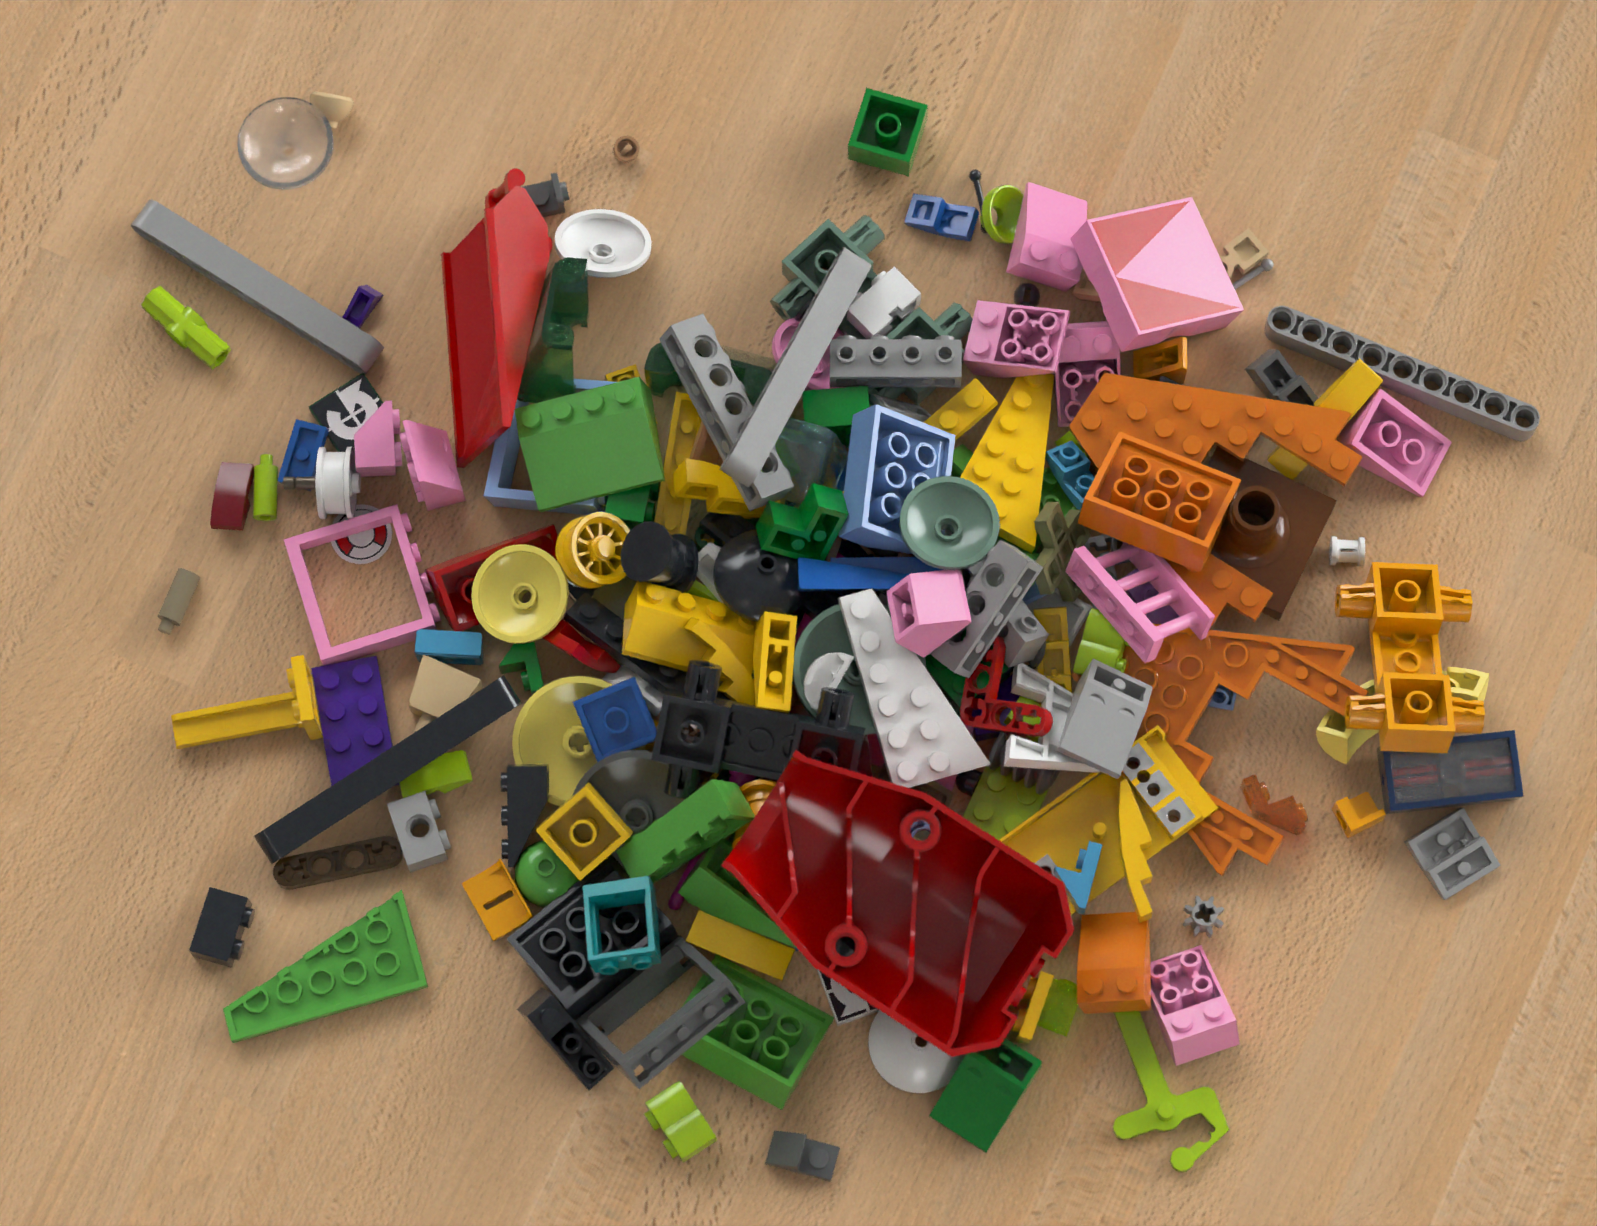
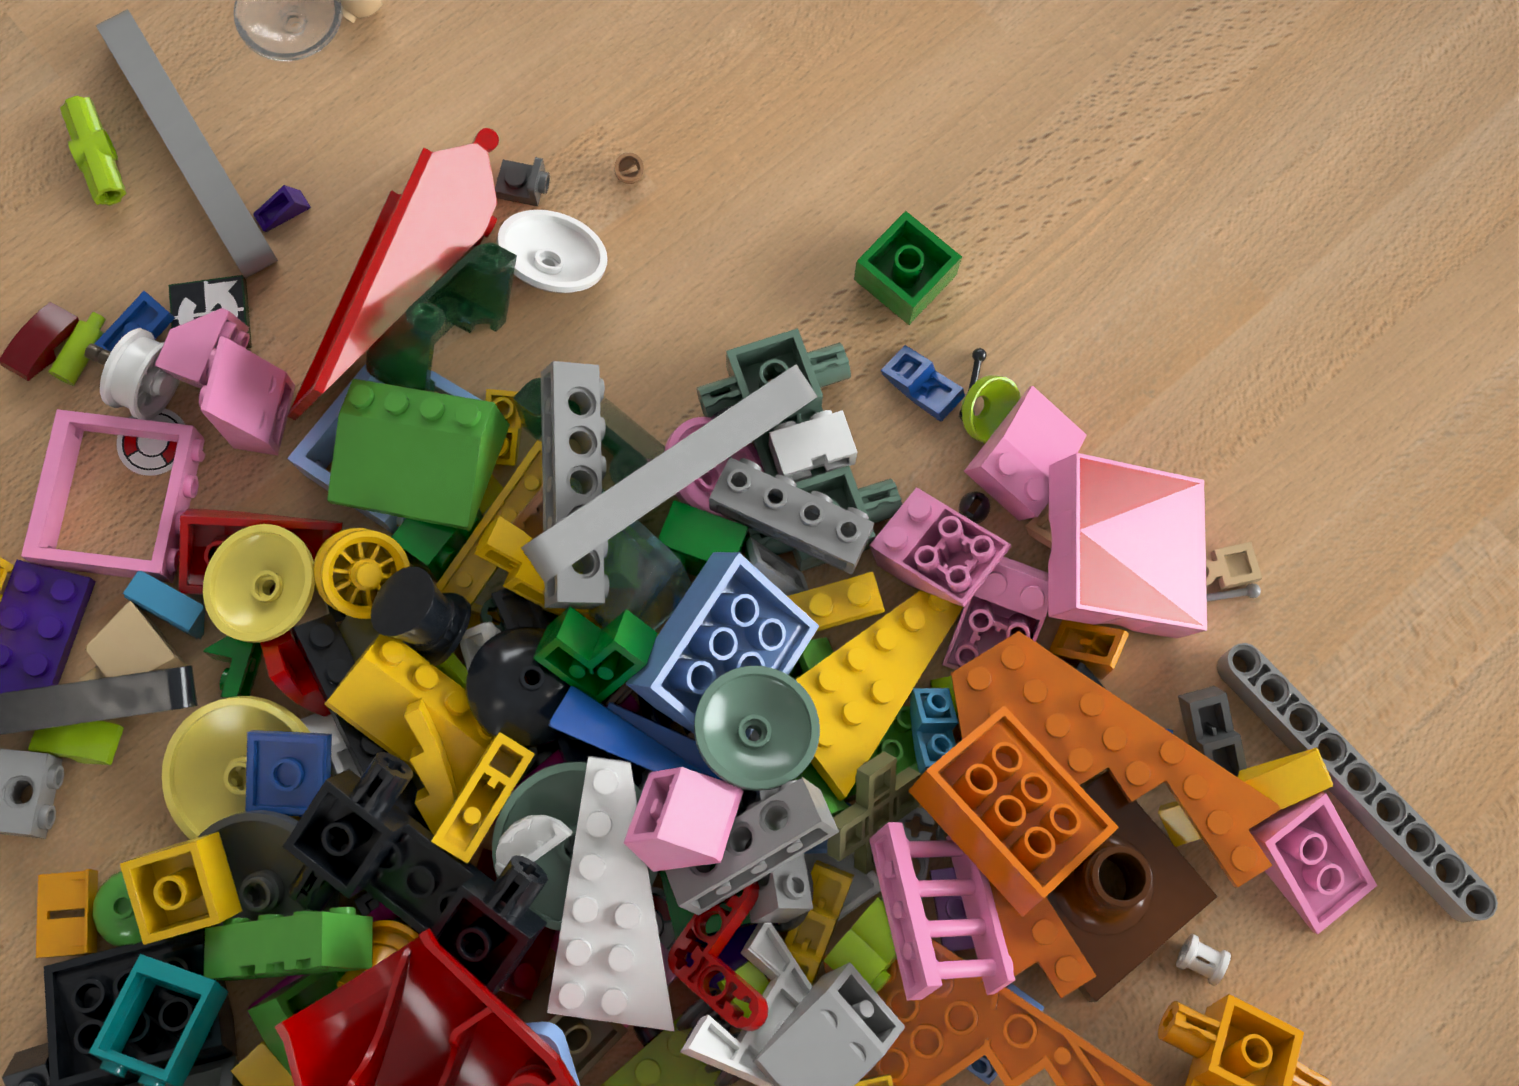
camera: 20 degrees right, 0 degrees up
(526, 796) = (151, 810): black slope -> none

